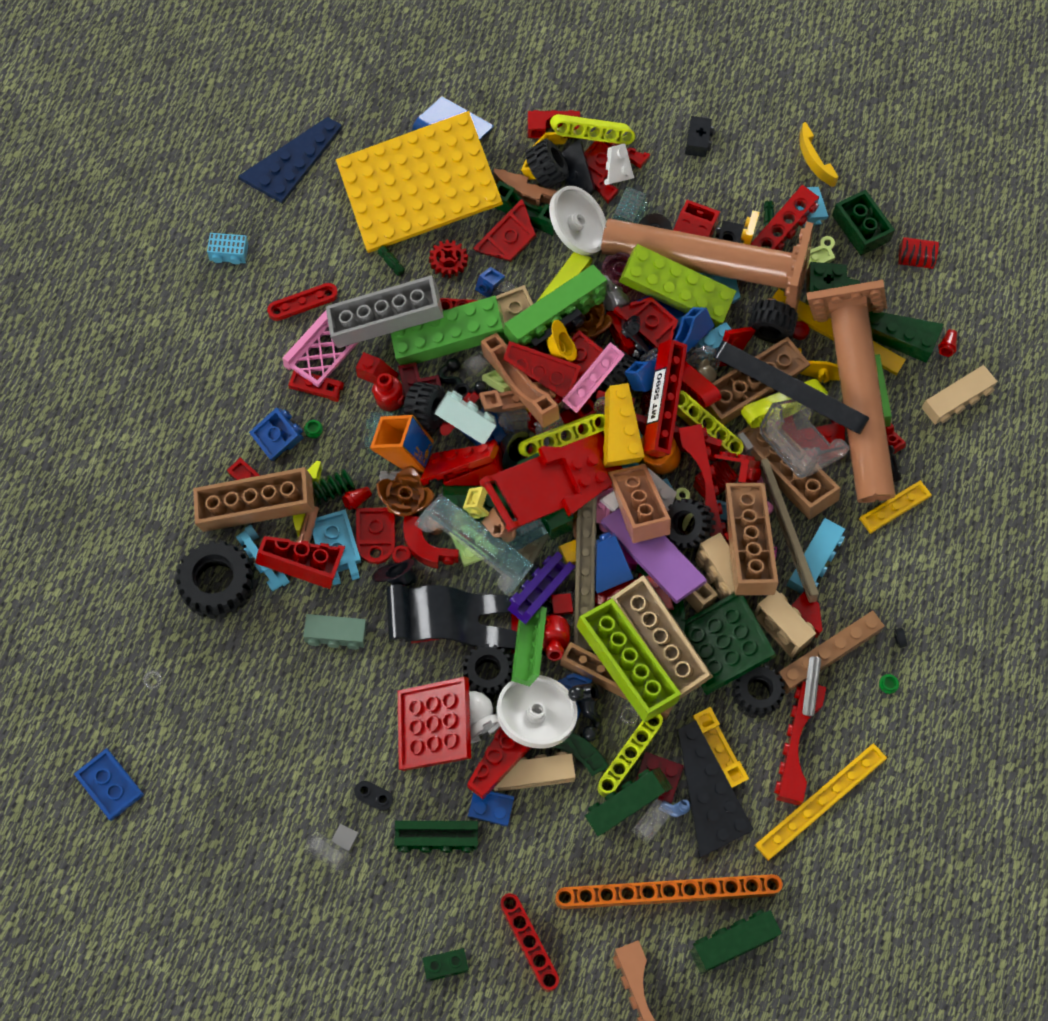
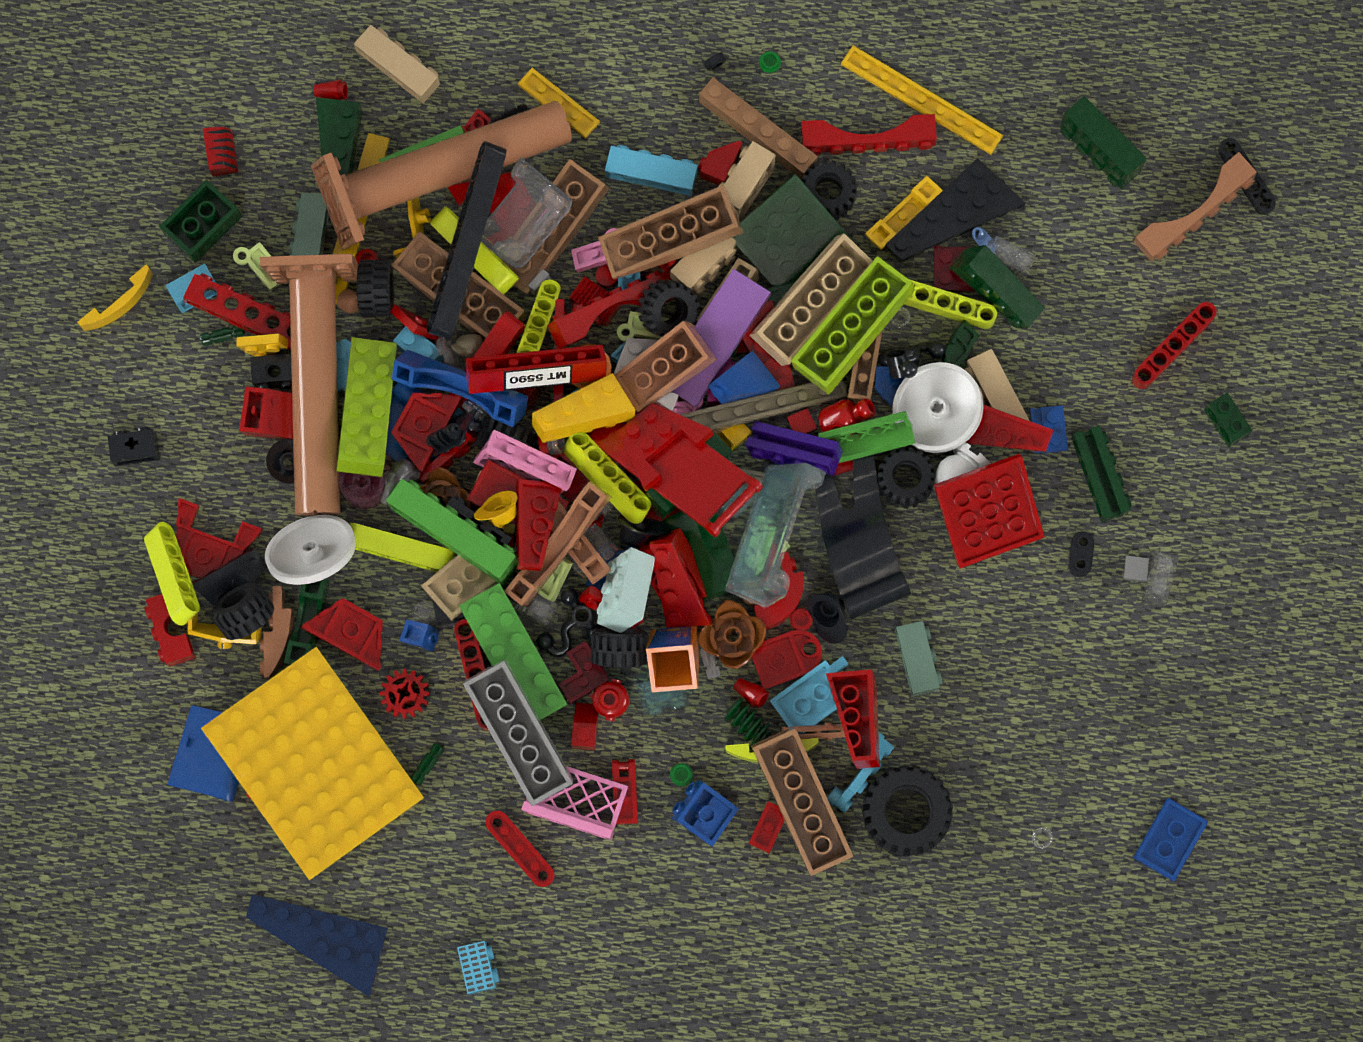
camera: 100 degrees left, 10 degrees up
(475, 501) = (722, 547): light yellow bracket -> none
(496, 526) = (742, 518): nougat piece -> none
(618, 165) = (210, 529): white wing -> none
(631, 206) = (265, 499): clear light blue brick -> none
(677, 886) = (1076, 234): orange beam -> none
(749, 467) = (573, 273): red bracket -> none
(788, 531) = (636, 203): dark tan tile -> none
(811, 686) = (810, 133): light grey axle -> none
(827, 276) = (305, 224): dark green hinge -> none

